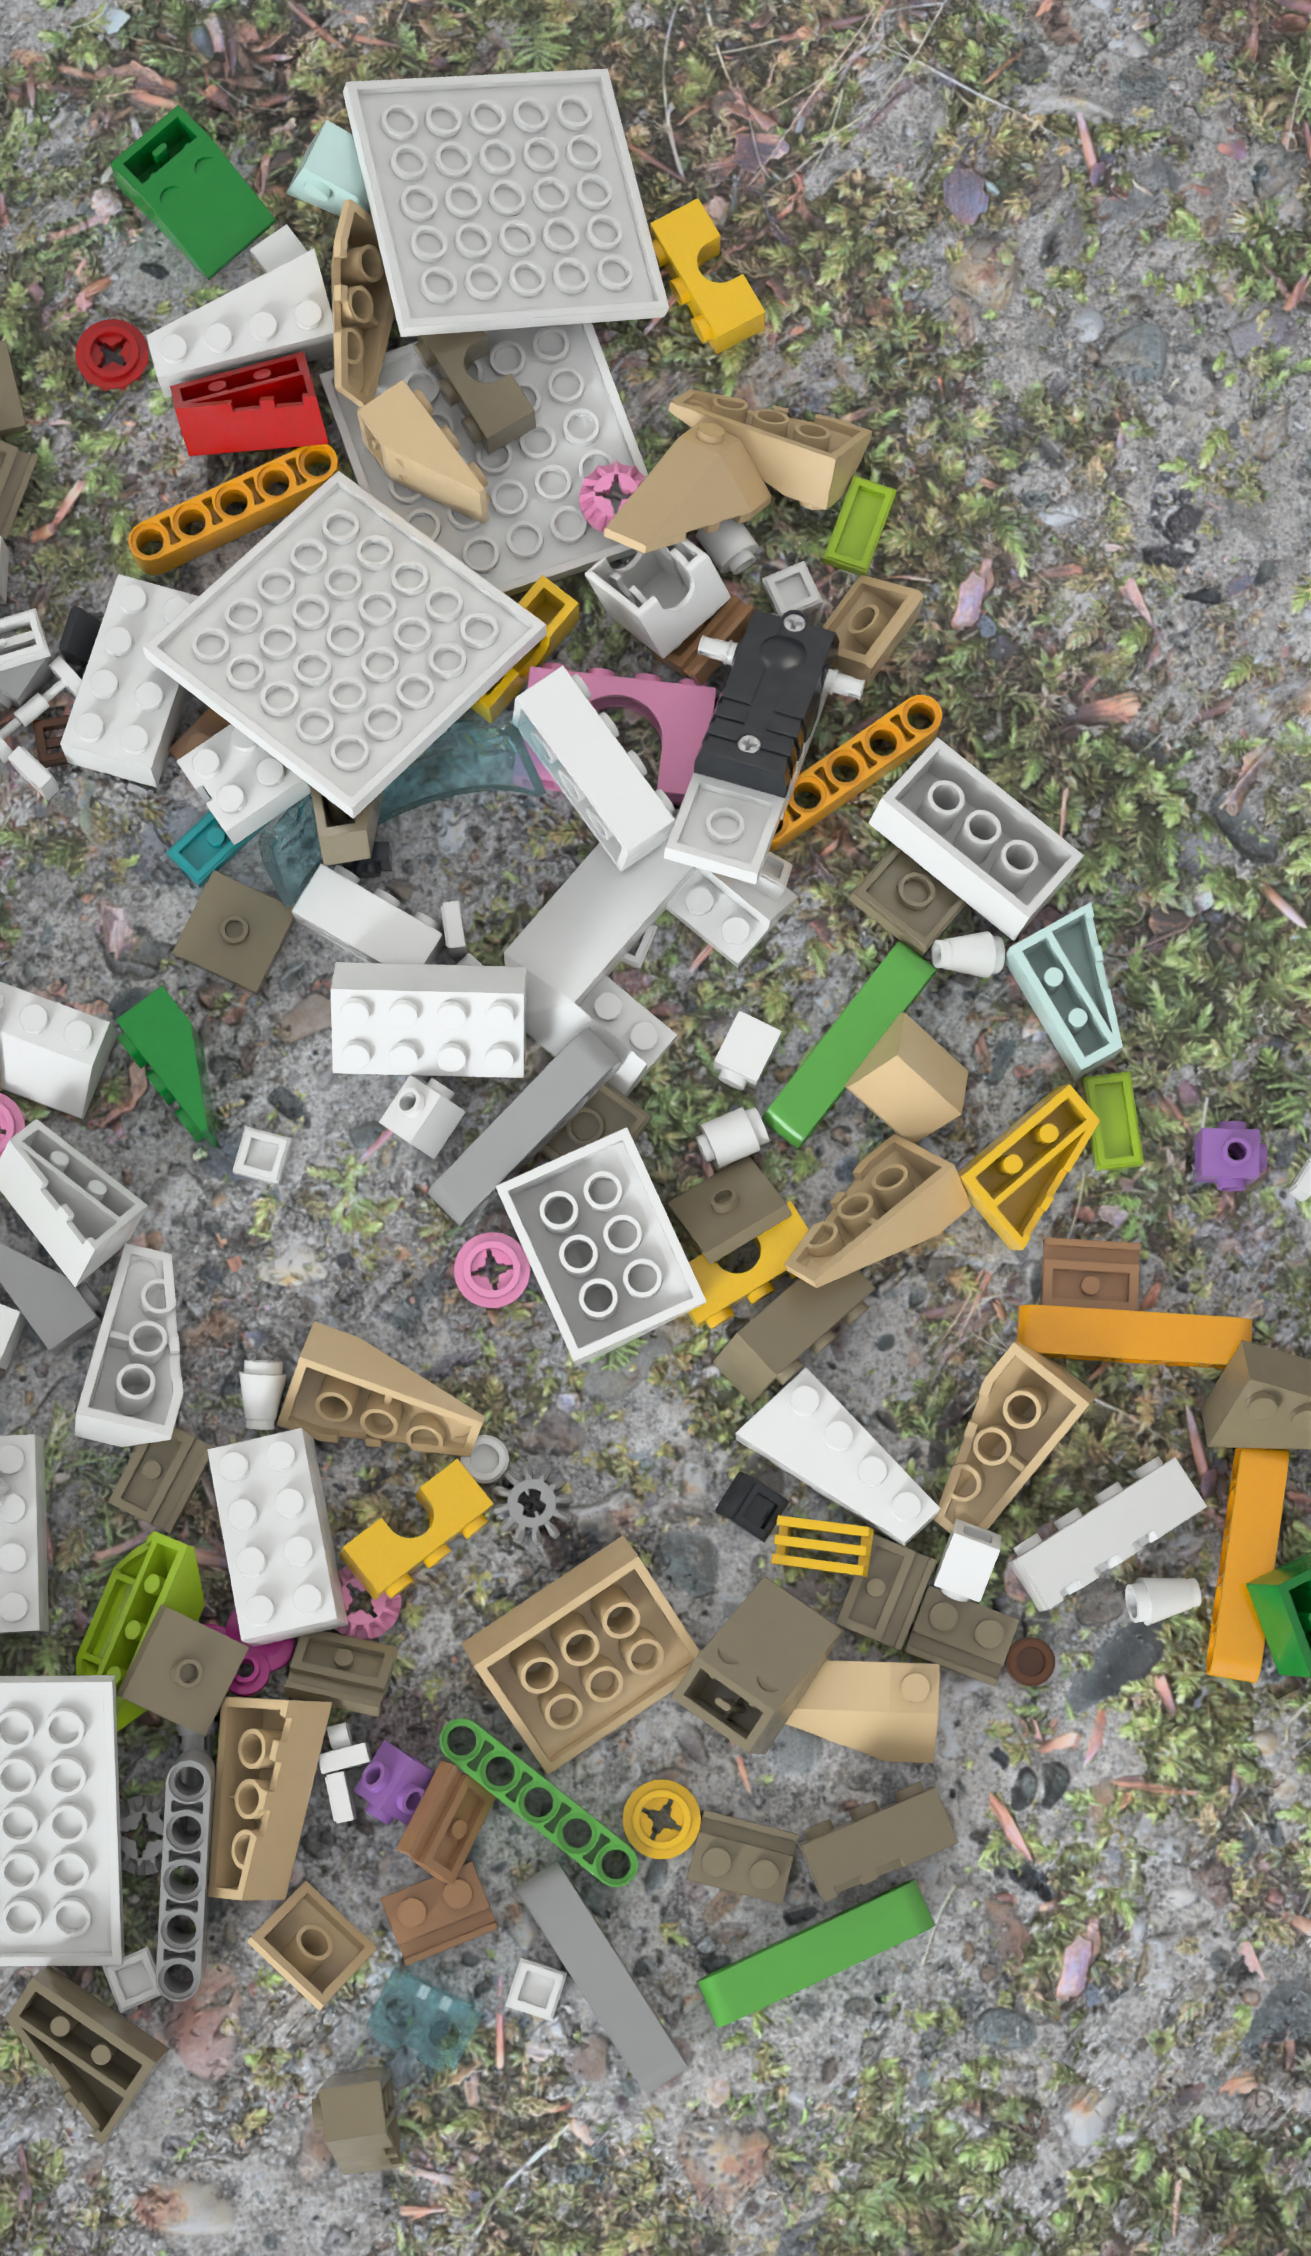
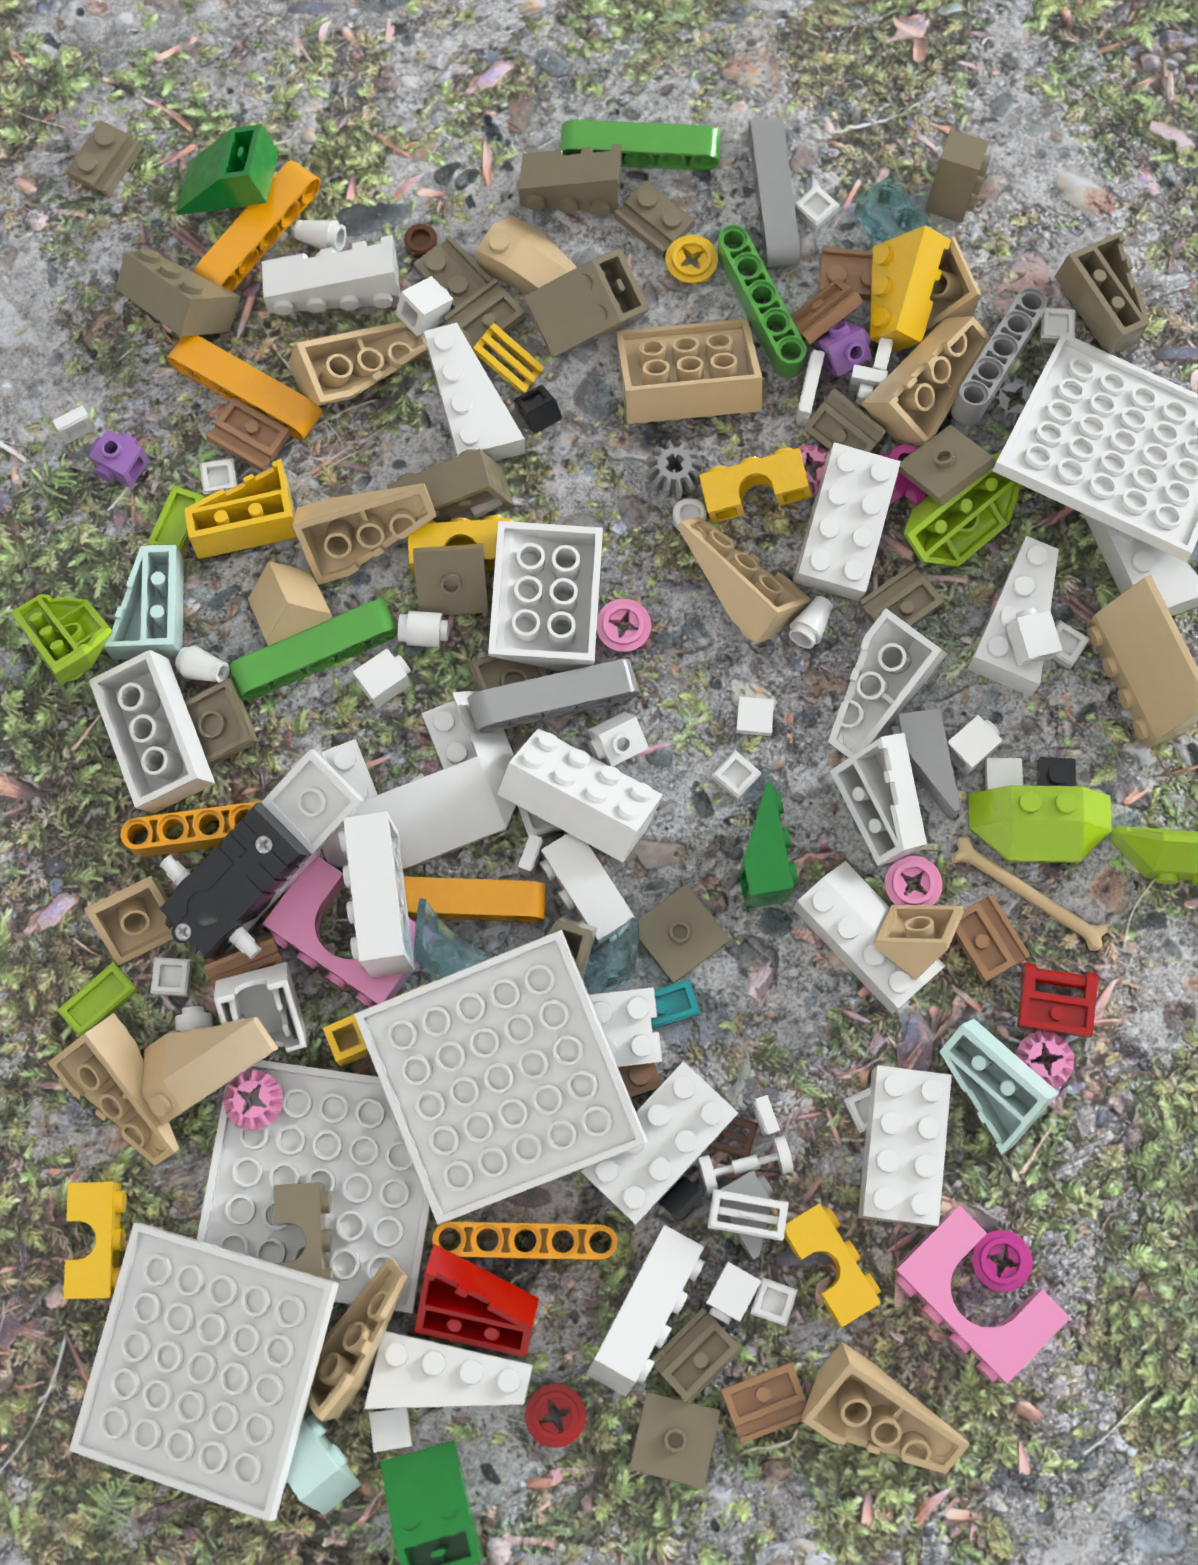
camera: 150 degrees left, 5 degrees down
(62, 499) = (646, 1310): none -> white wedge
(275, 1240) = (755, 716): none -> white tile
(356, 1906) = (903, 284): none -> yellow wedge
(415, 1708) = (809, 387): none -> white tile
(419, 453) = (375, 1205): tan slope -> none
(492, 847) = (478, 899): none -> light orange beam
(1094, 1205) = (218, 476): none -> white tile
(1152, 898) = (64, 633): none -> lime wedge

